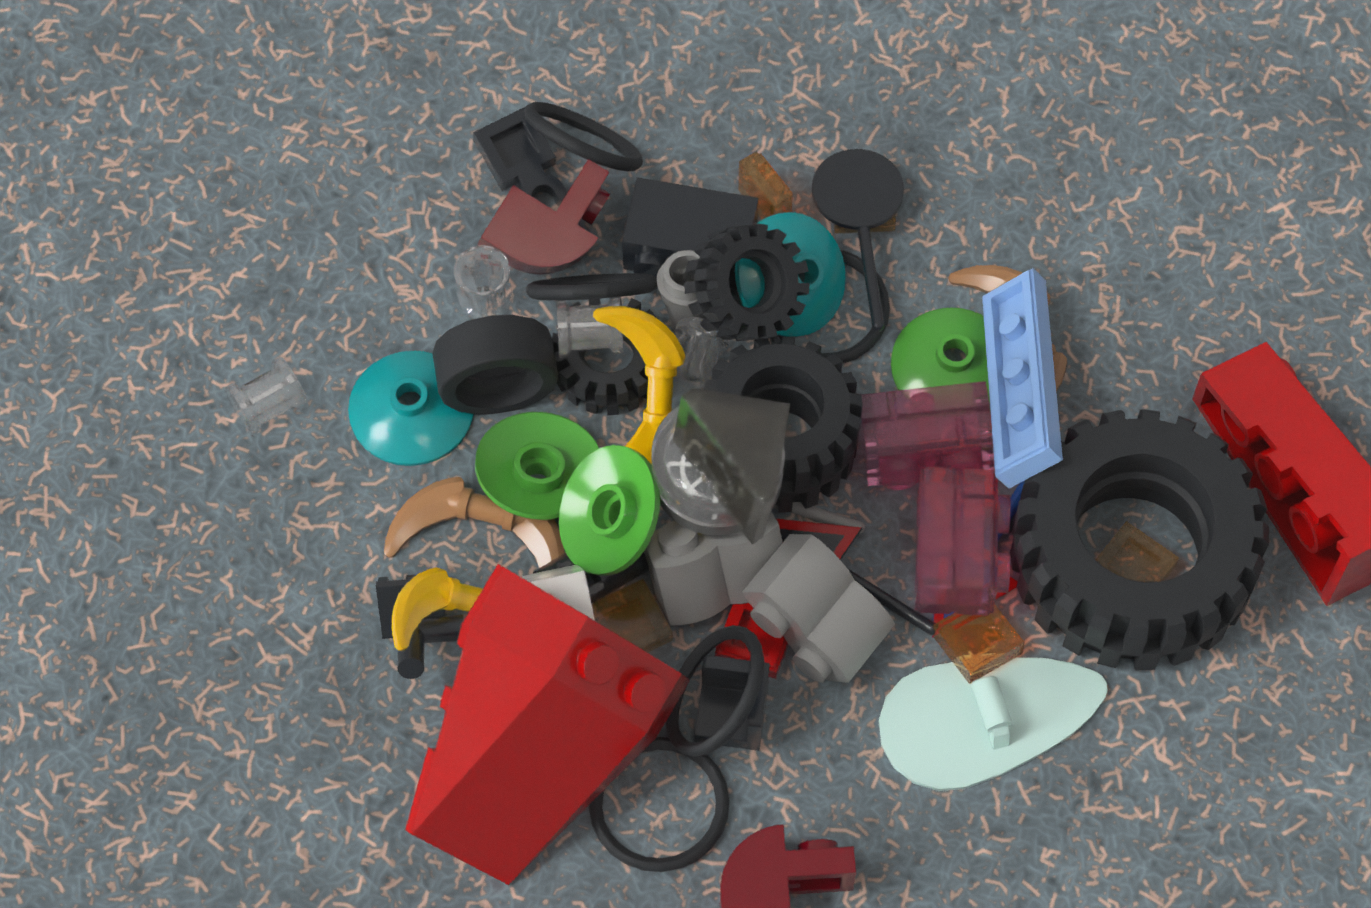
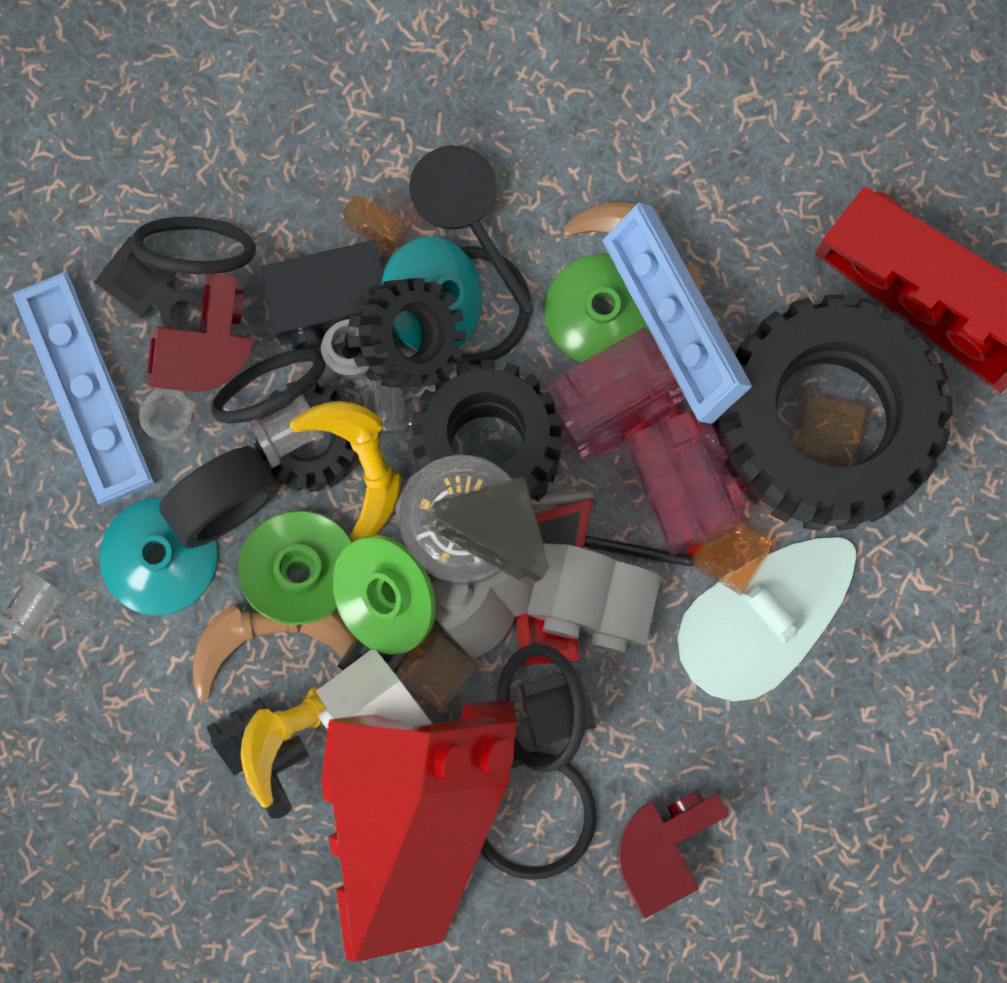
camera: 25 degrees left, 15 degrees up
(416, 230) = (84, 389): none -> light blue tile

